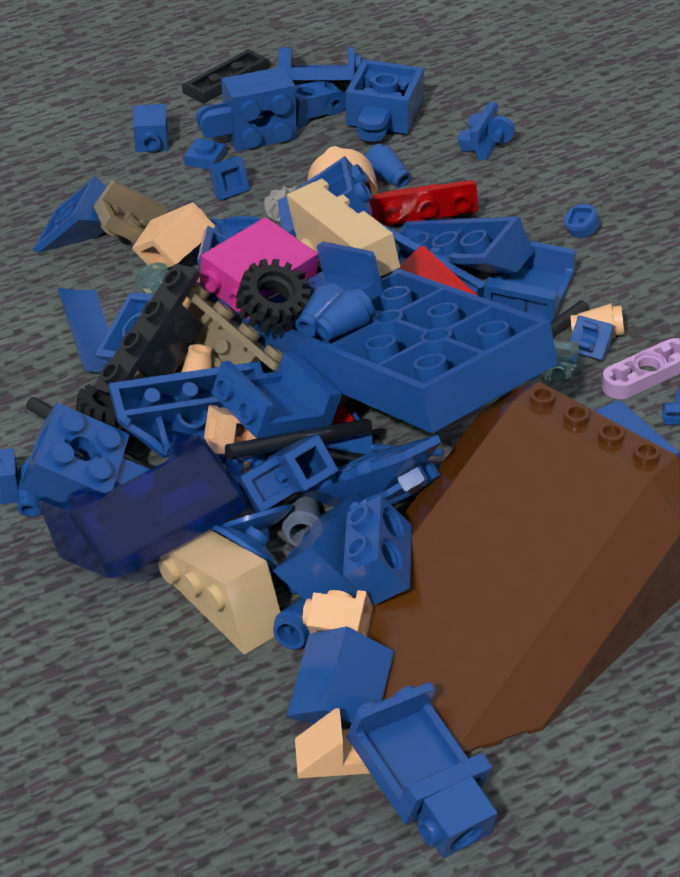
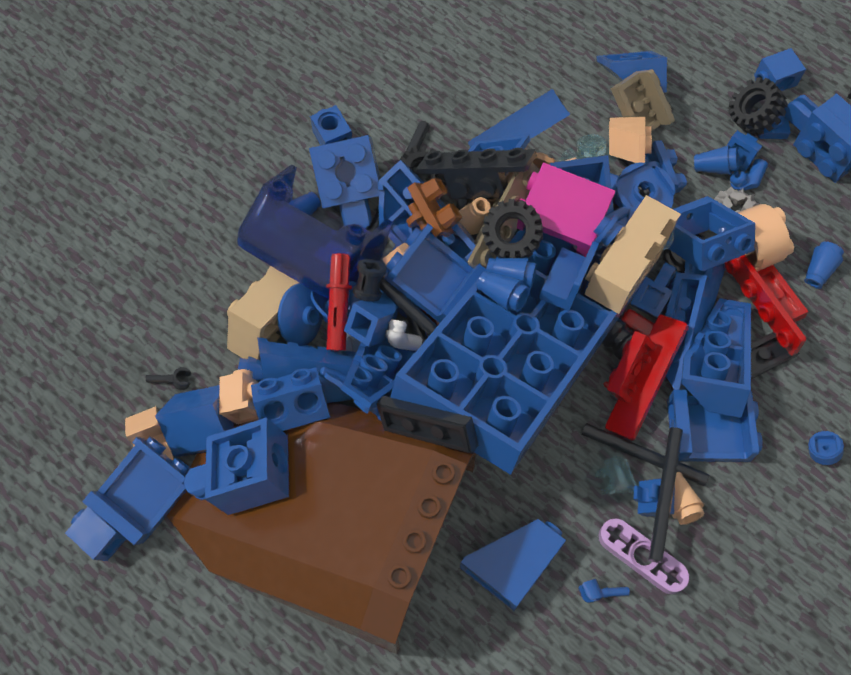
camera: 70 degrees right, 25 degrees up
(172, 137) = (750, 96): none -> black tyre
(191, 376) = (427, 210): none -> dark orange hips
(232, 192) = (720, 161): none -> blue cone
(258, 440) = (369, 280): none -> black bush
(261, 184) = (751, 179): none -> blue arm
(265, 485) = (338, 301): none -> red axle
(266, 708) = (171, 378): none -> black hand
(311, 230) = (607, 230): none -> blue plate
(335, 448) = (401, 340): none -> white arm
(431, 611) = (242, 468): none -> blue brick
(479, 401) = (428, 424): none -> black tile
(598, 316) = (665, 495): none -> black bar

